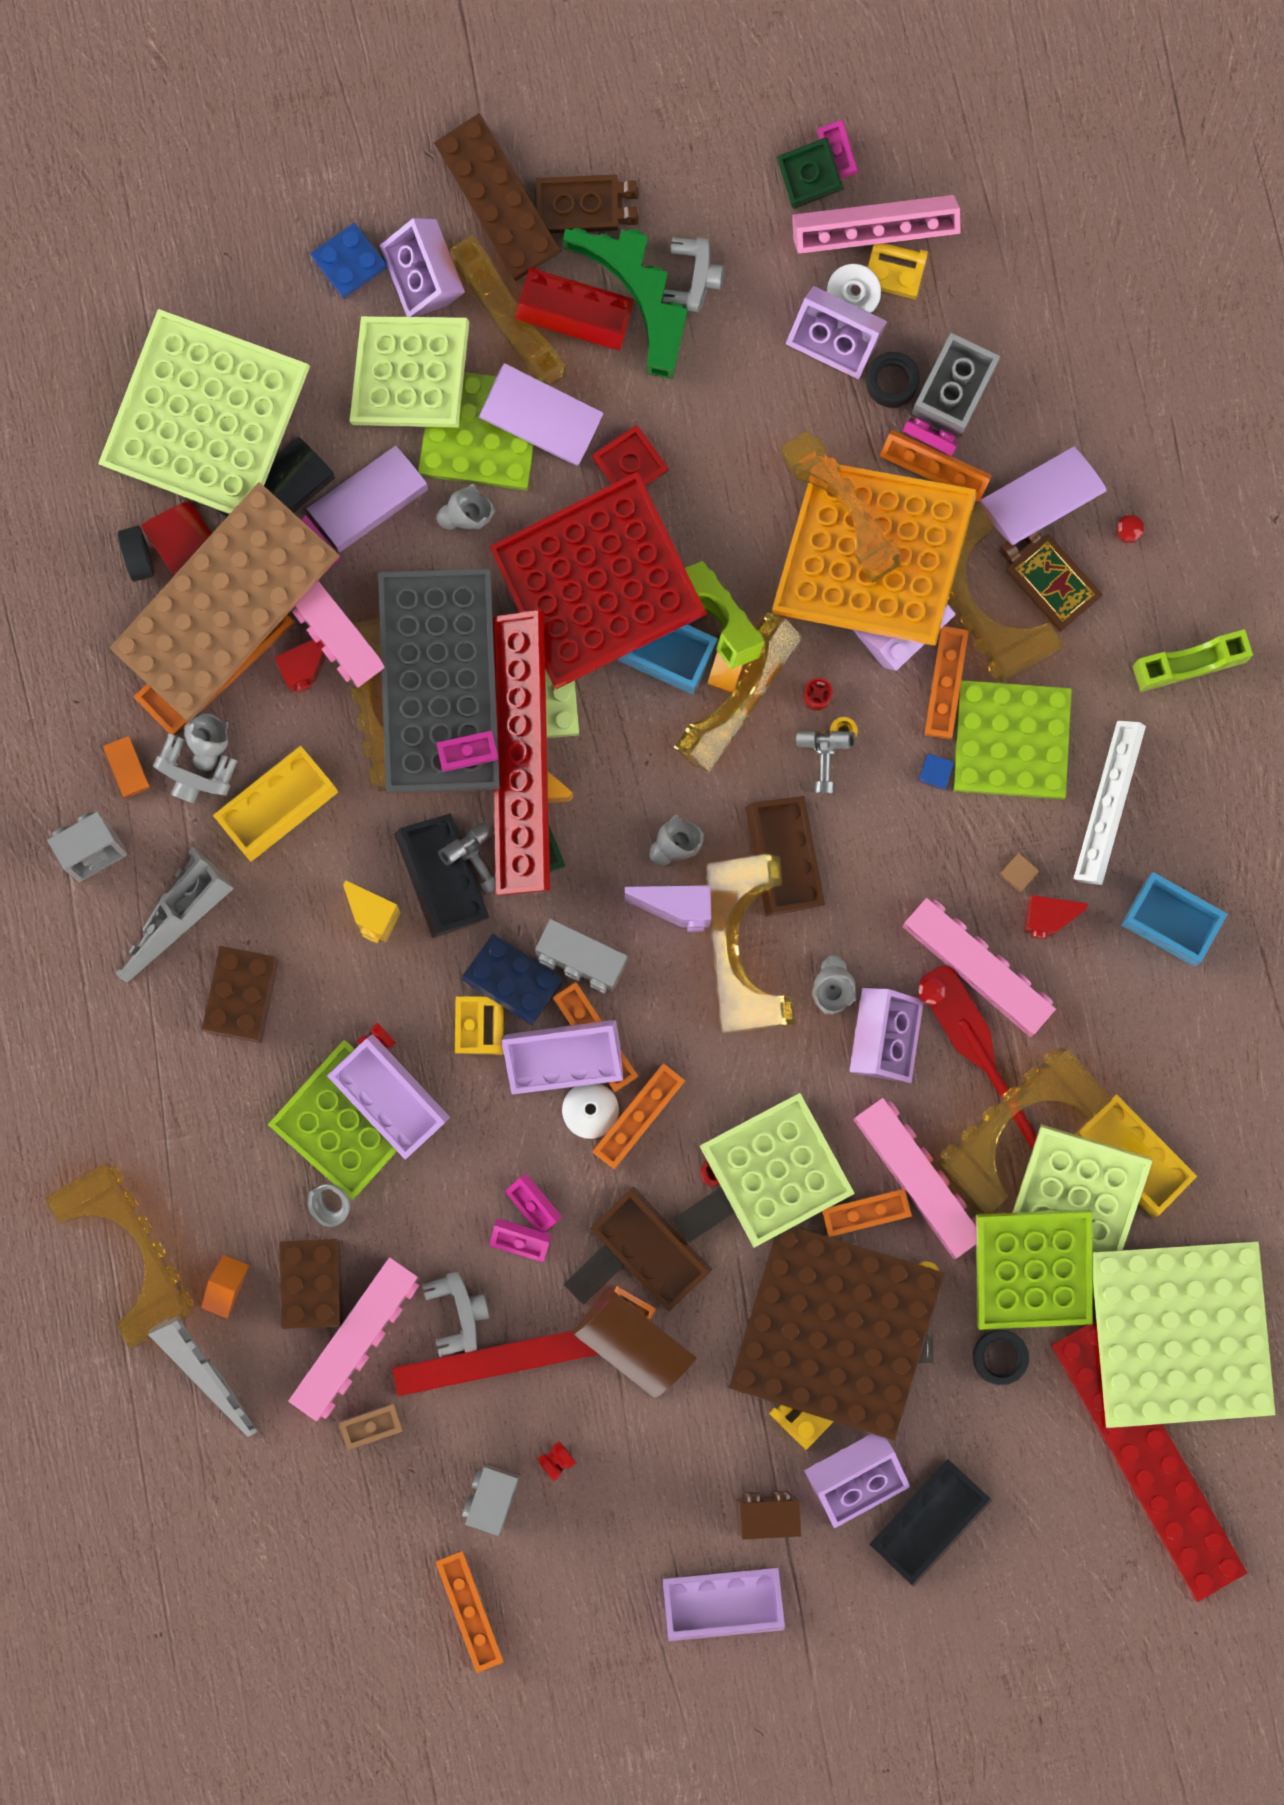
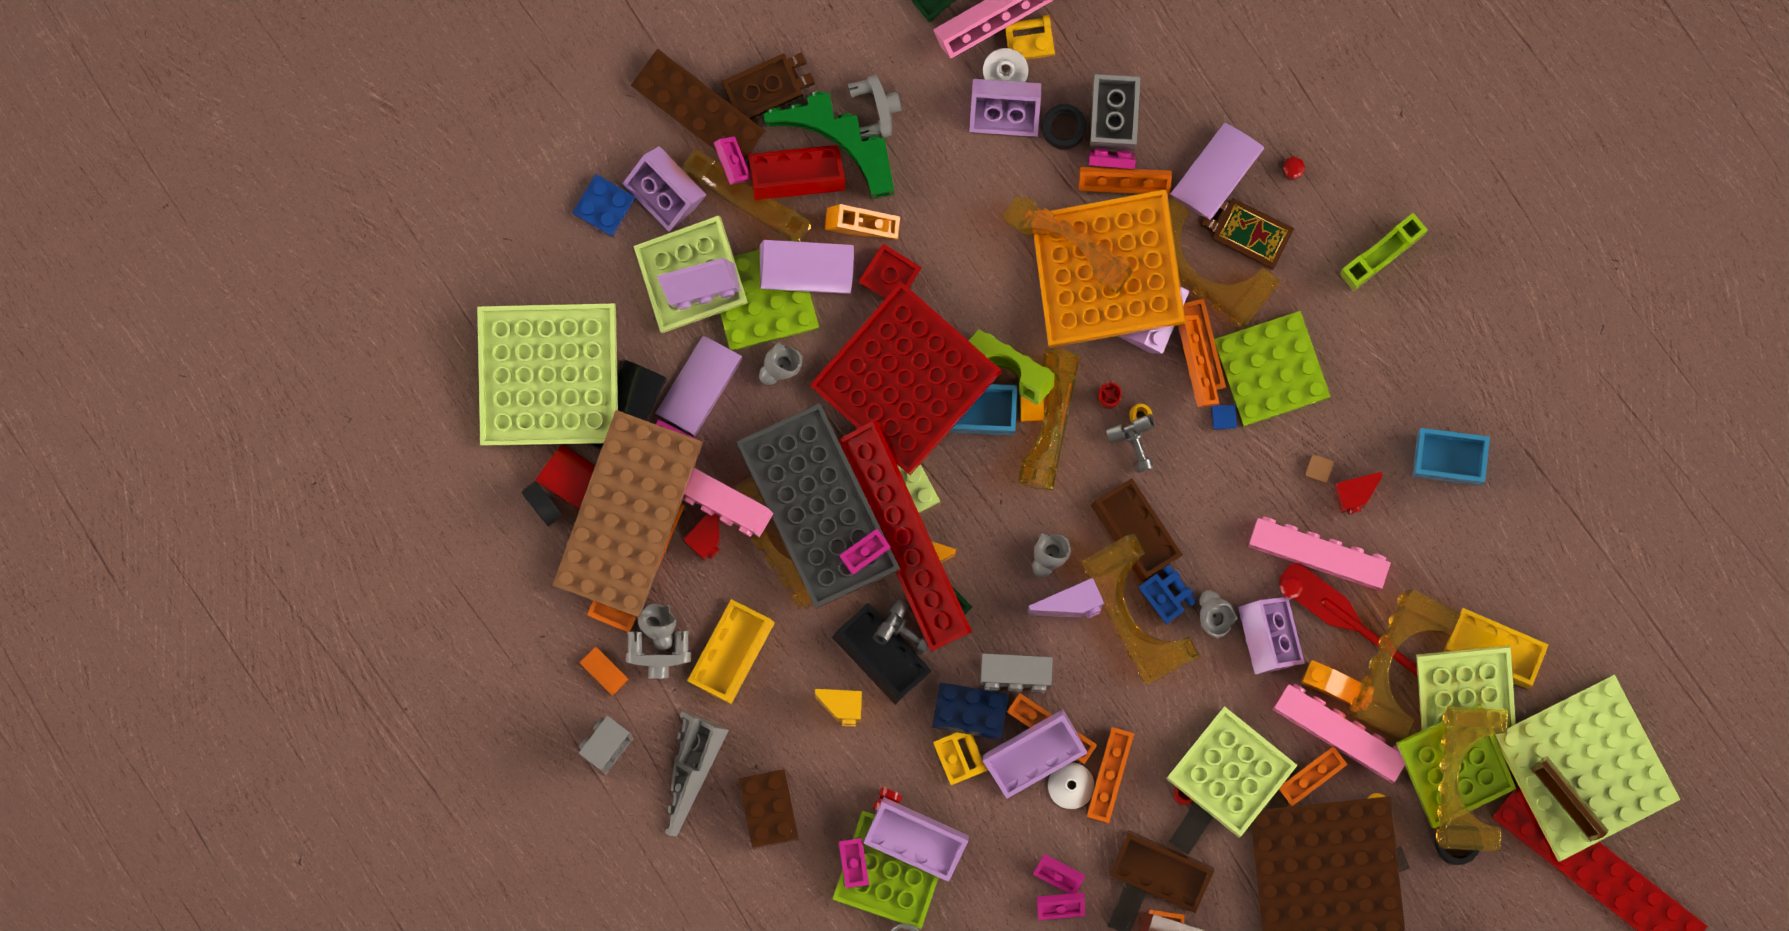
camera: 20 degrees left, 0 degrees up
(307, 1094) = (853, 863): none -> dark pink plate
(412, 380) = (700, 283): none -> lavender slope
(508, 265) = (732, 160): none -> dark pink plate
(623, 392) = (861, 222): none -> light orange slope
(781, 945) = (1162, 599): none -> blue plate
(931, 1116) = (1330, 682): none -> light orange slope
(932, 696) = (1198, 362): none -> orange plate
(1058, 1232) = (1463, 730): none -> clear yellow arch
(1109, 802) = (1365, 386): white plate -> none
(1148, 1362) = (1569, 799): none -> reddish brown slope

